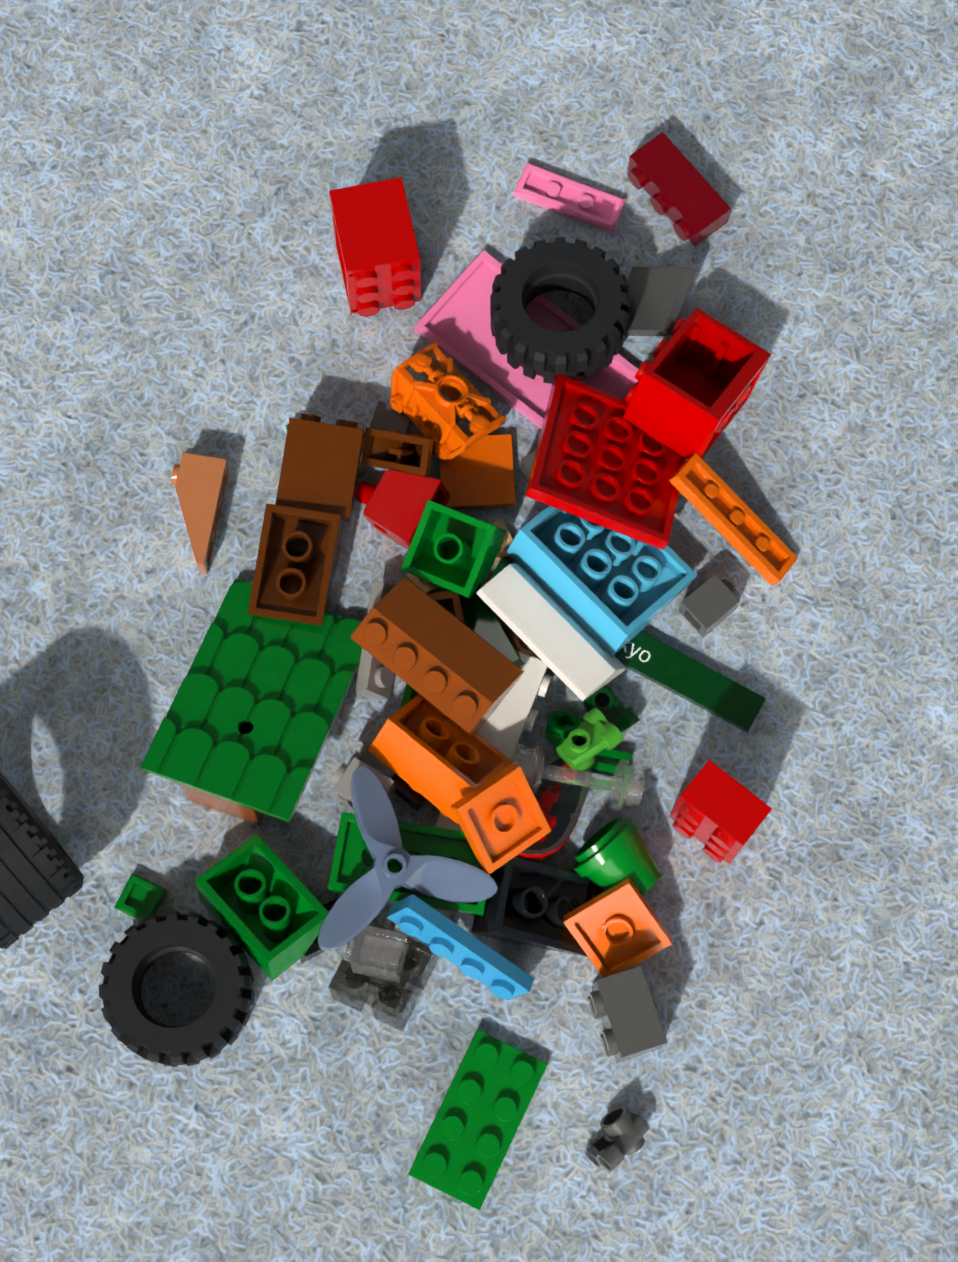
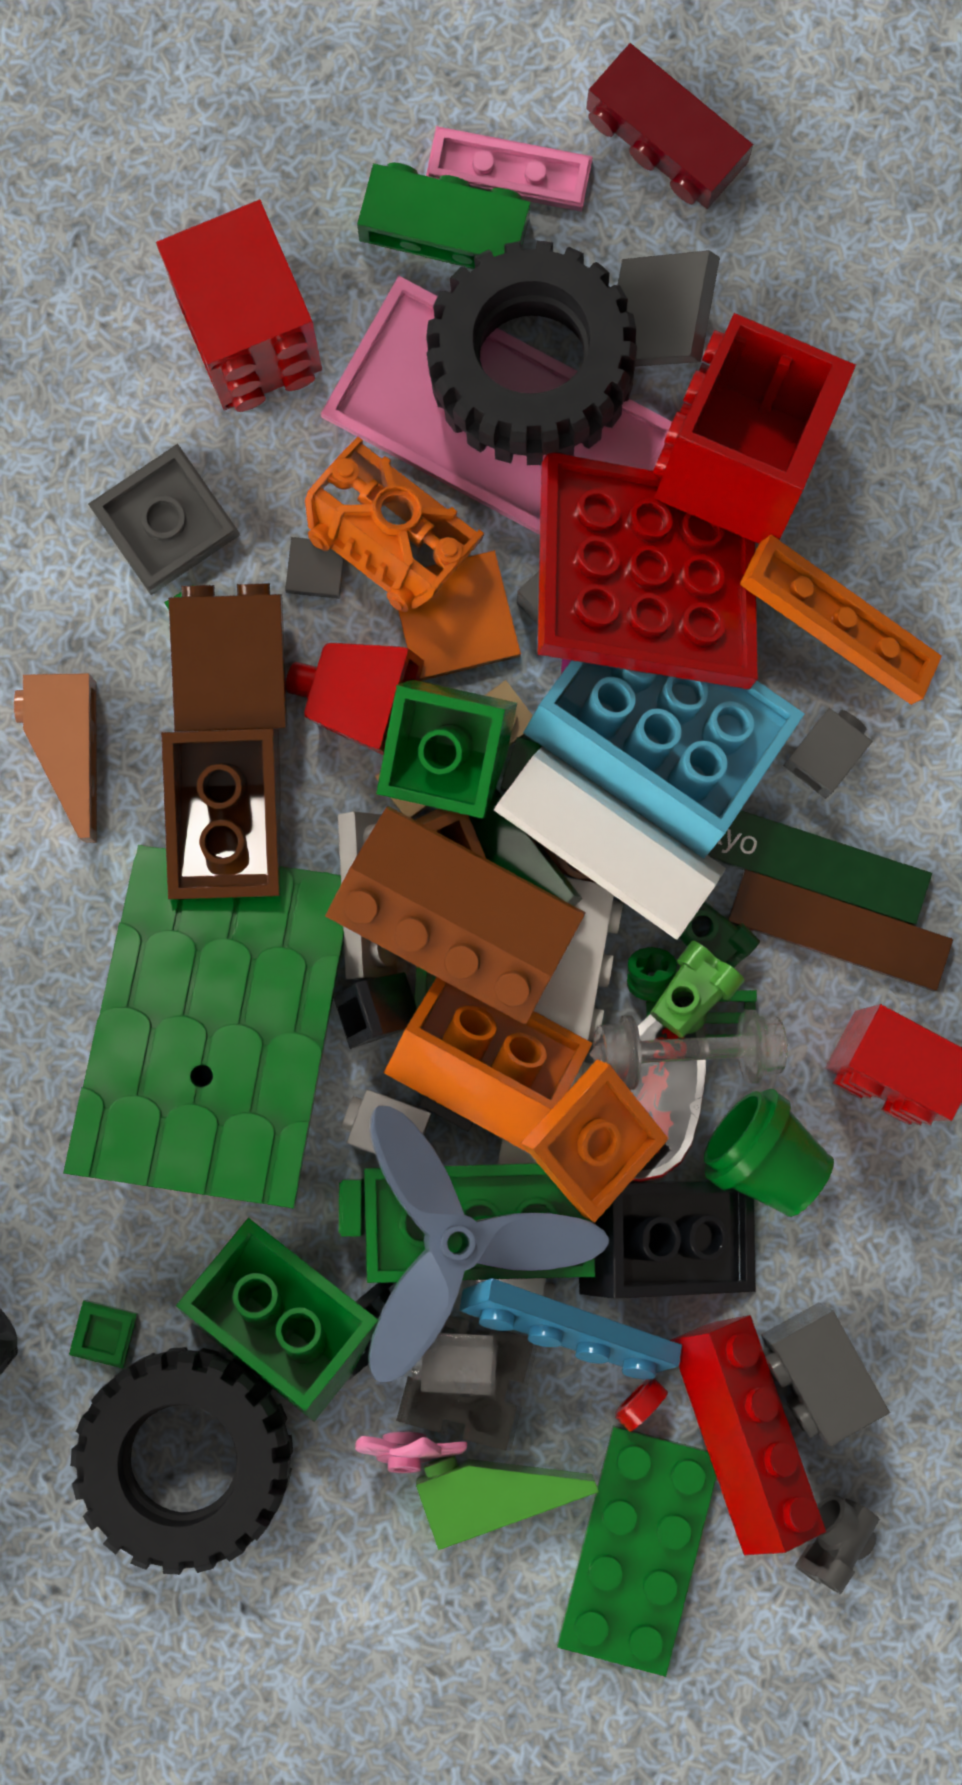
camera: 10 degrees left, 10 degrees up
(297, 374) = (164, 519): none -> dark grey plate
(327, 843) = (351, 1207): none -> green tile
(332, 1015) = (406, 1450): none -> bright pink plate
(368, 712) = (375, 1008): none -> black slope
(376, 1057) = (485, 1495): none -> bright green slope
(397, 450) = (336, 610): reddish brown slope -> none
(499, 1016) = (640, 1404): none -> red tile
(515, 216) = (439, 216): none -> green brick
(568, 1050) = (748, 1437): none -> red brick
(617, 929) = (785, 1253): orange tile -> none
(697, 725) = (840, 930): none -> reddish brown tile

